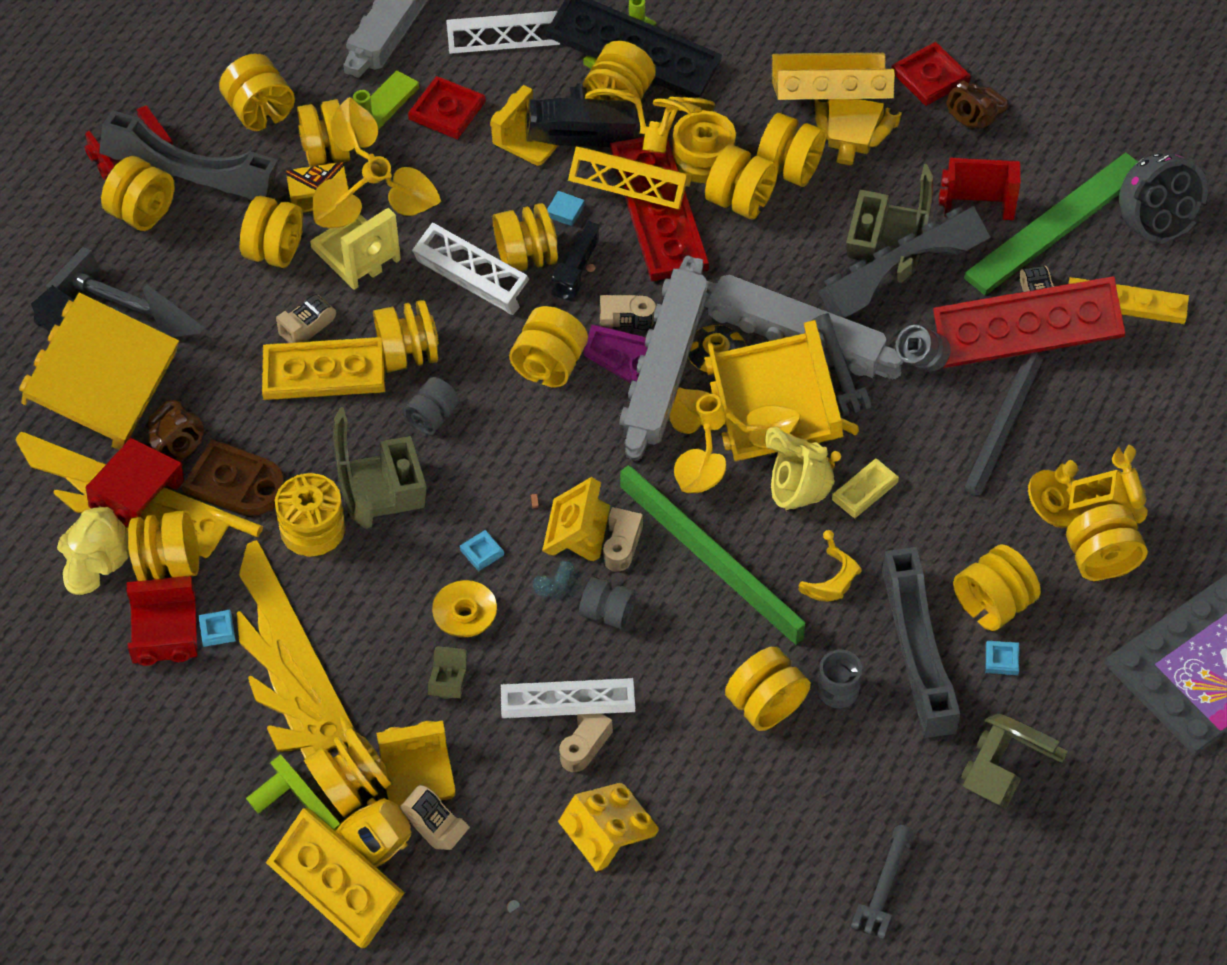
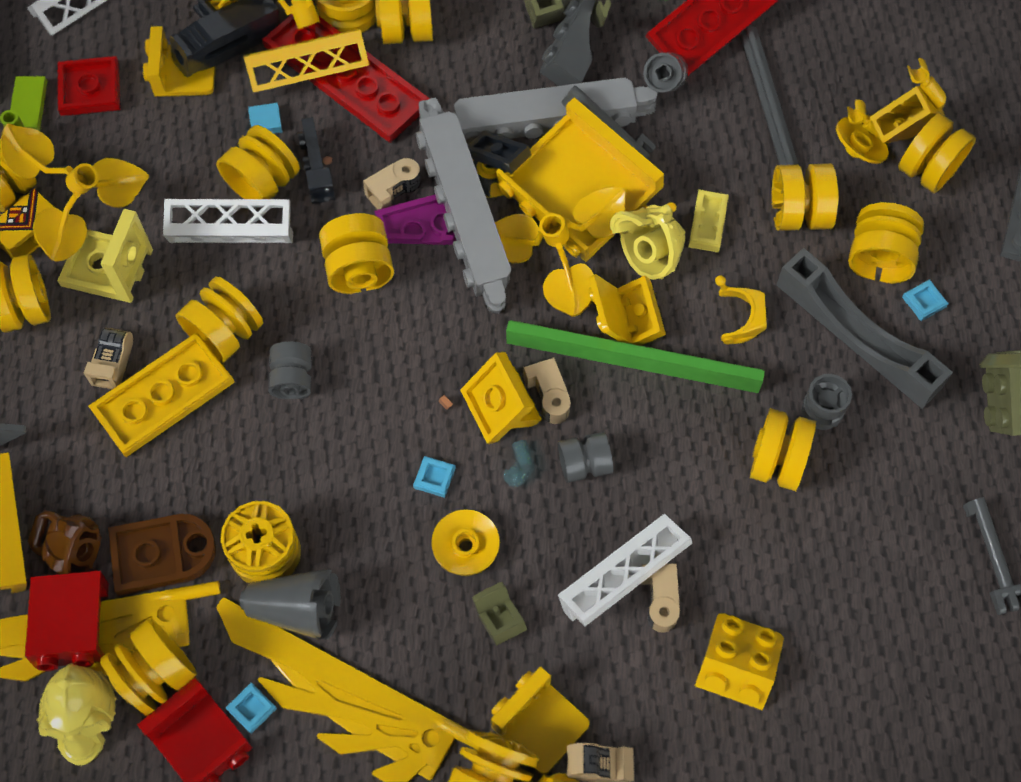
camera: 35 degrees left, 10 degrees up
(306, 572) = (295, 602): none -> dark grey cone
(378, 483) = (298, 471): olive piece -> none
(724, 332) = (498, 151): none -> black plate
(729, 516) = (627, 312): none -> yellow bracket
(952, 509) = (805, 196): none -> yellow wheel

